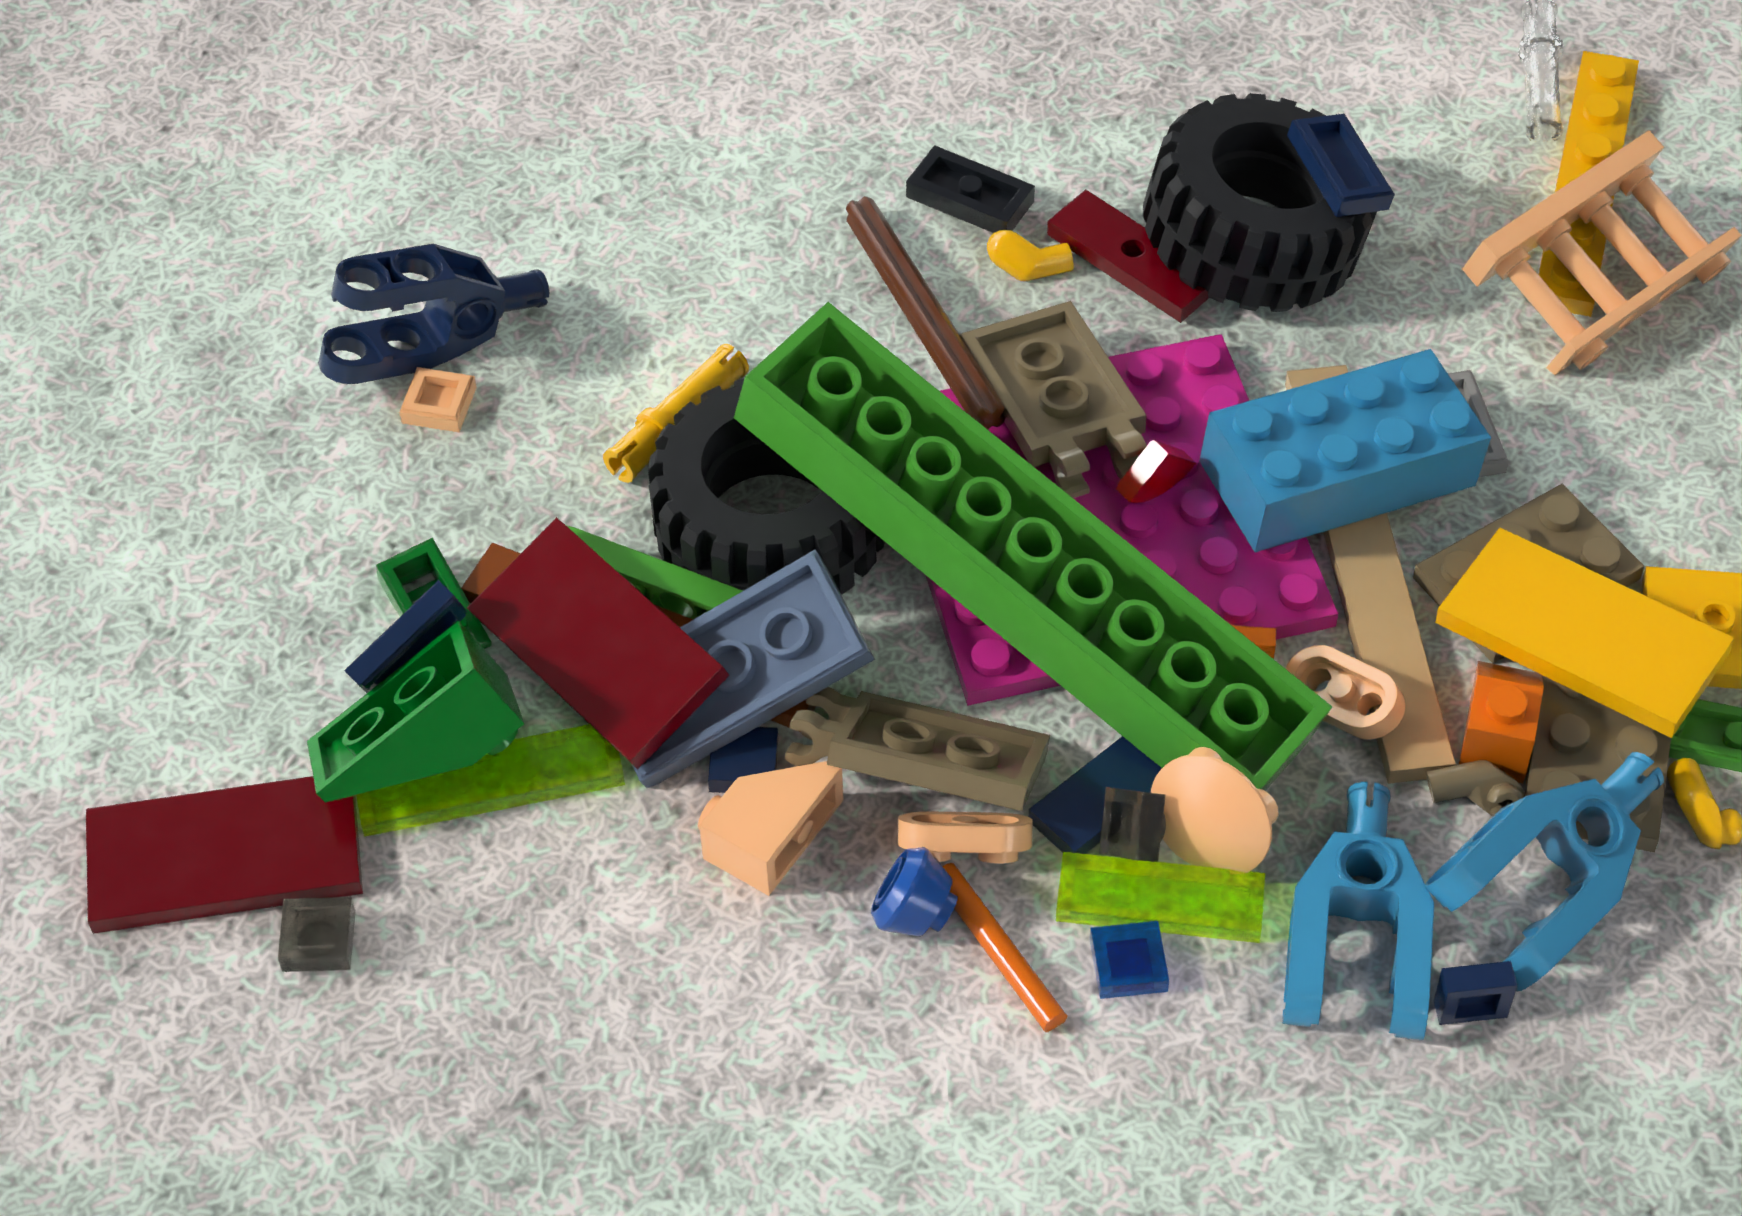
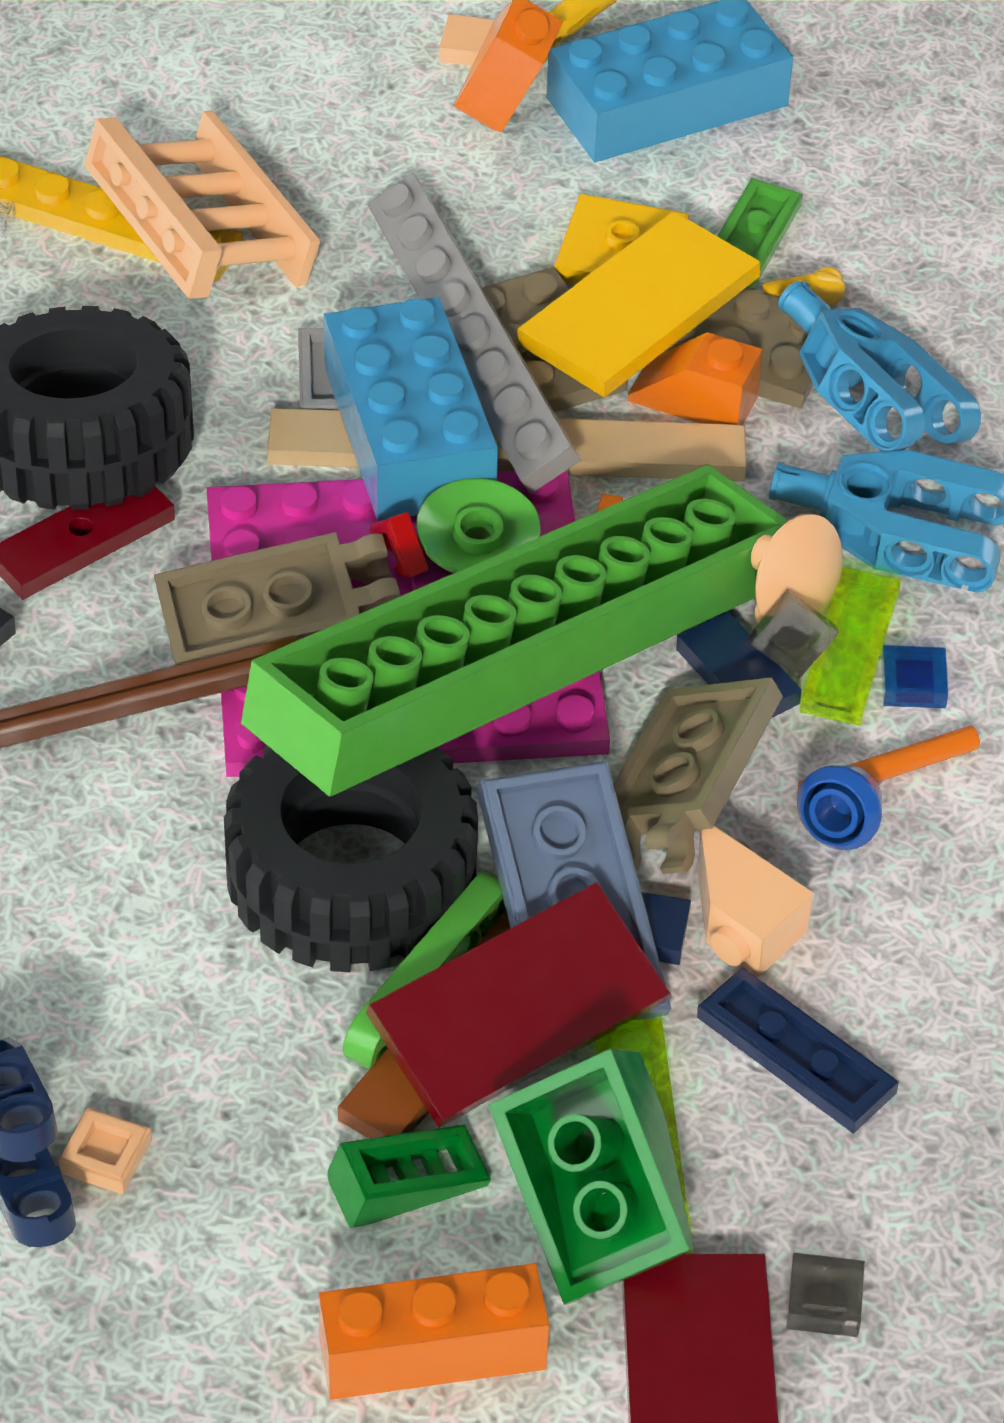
camera: 85 degrees left, 5 degrees down
(249, 636) = (433, 1331): none -> orange brick
(407, 636) = (479, 1175): dark blue tile -> none
(610, 895) = (797, 1050): none -> dark blue tile
(639, 443) = (210, 943): yellow pin -> none
(991, 835) = (777, 765): light nougat plate -> none
(1024, 259) = (50, 622): yellow arm -> none
(1188, 507) = (474, 522): none -> bright green dish
(1340, 165) = (89, 316): dark blue tile -> none
(1350, 691) = (659, 461): light nougat plate -> none
(1475, 992) = (983, 443): dark blue tile -> none
(1476, 780) = (769, 413): dark tan arm -> none
(1492, 499) = (500, 376): none -> light grey plate

